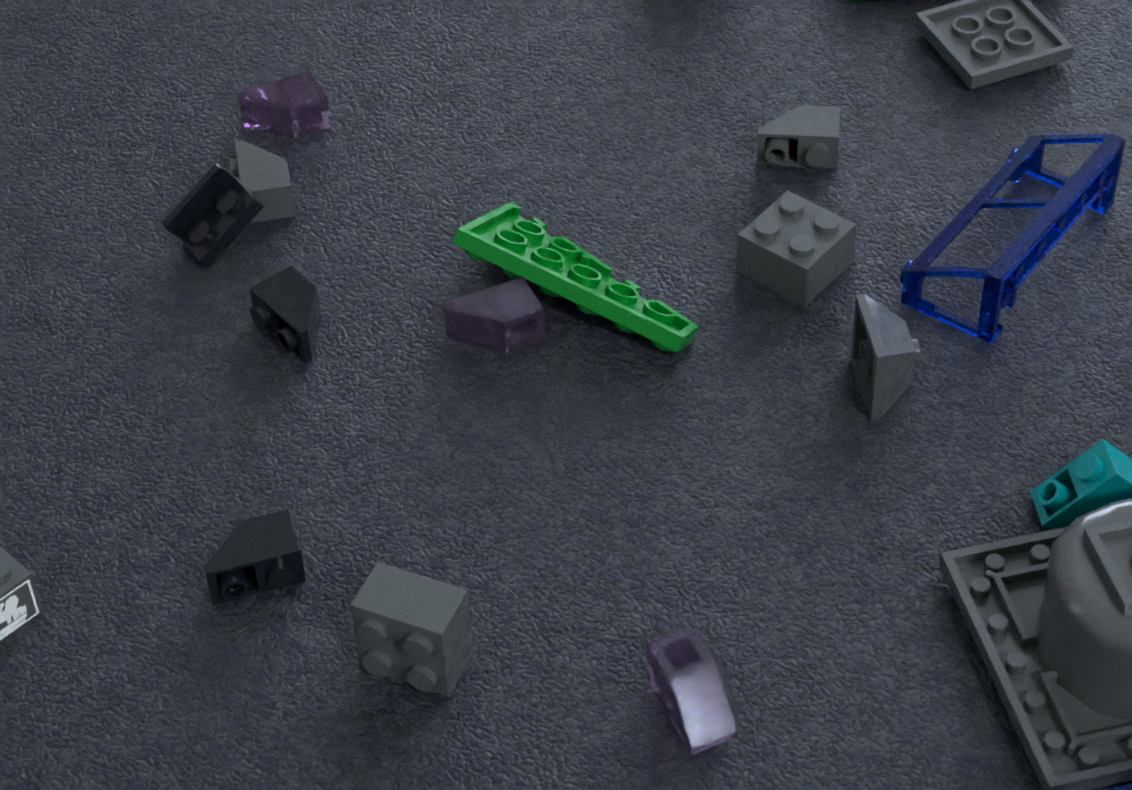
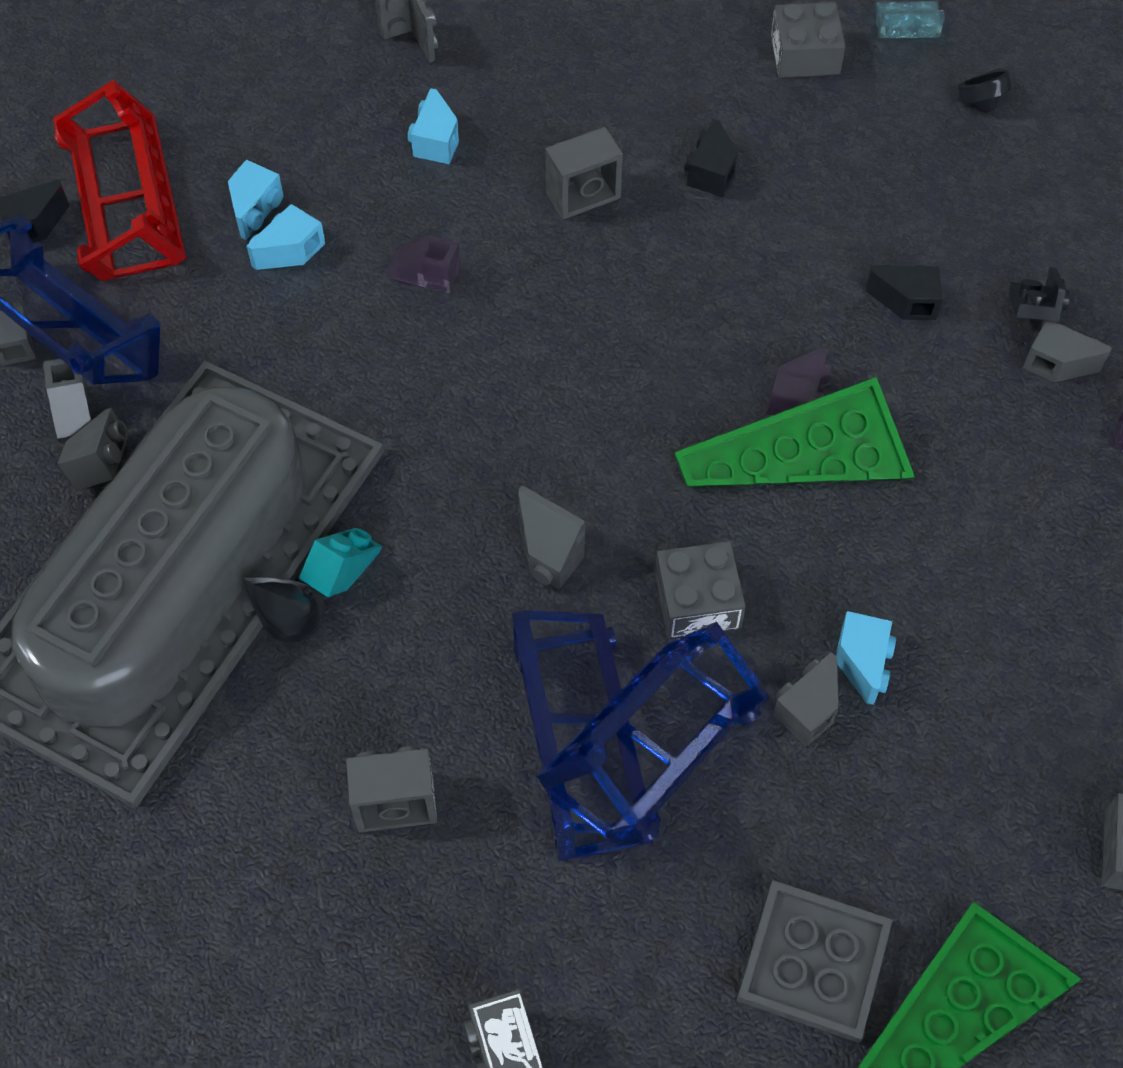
camera: 130 degrees right, 15 degrees up
(722, 135) = (863, 651): none -> medium azure slope
(1070, 149) = (586, 750): none -> clear blue windscreen

